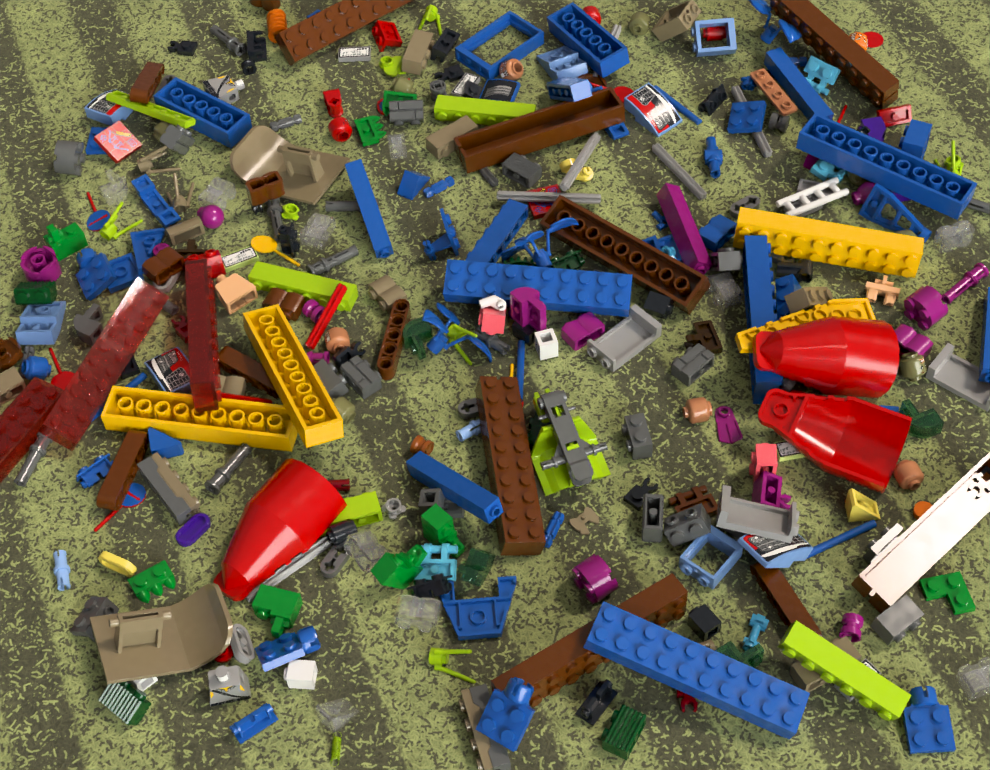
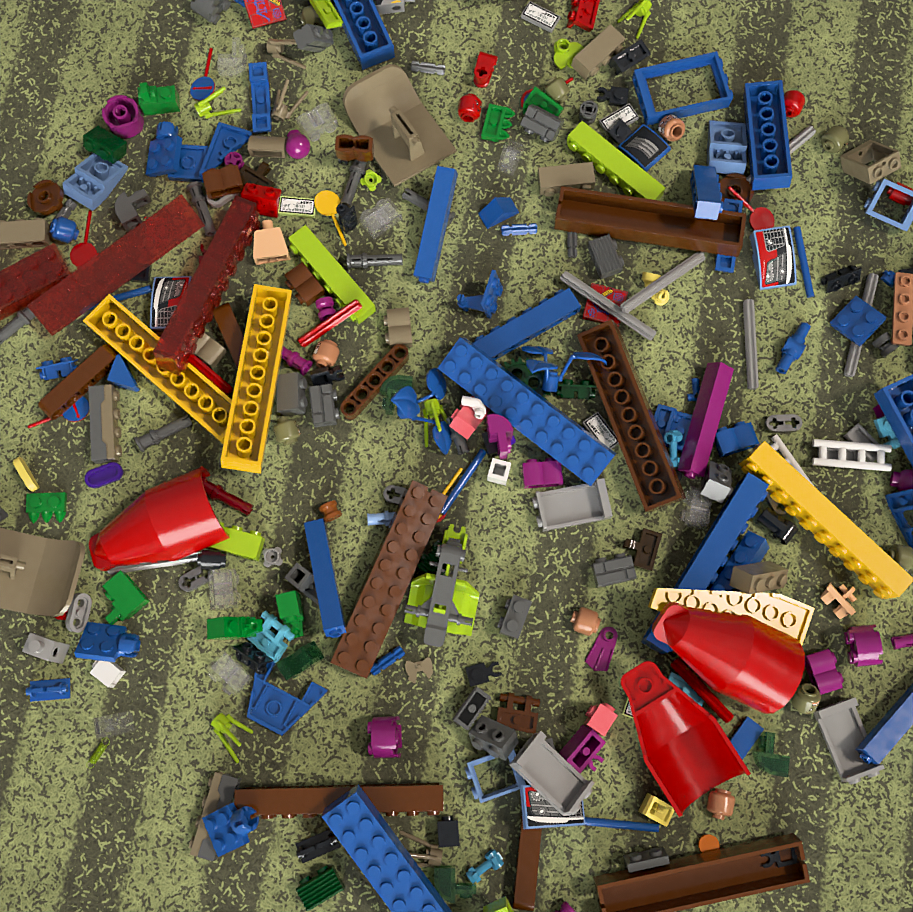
camera: 30 degrees right, 25 degrees up
(658, 305) = (625, 490): black brick -> none

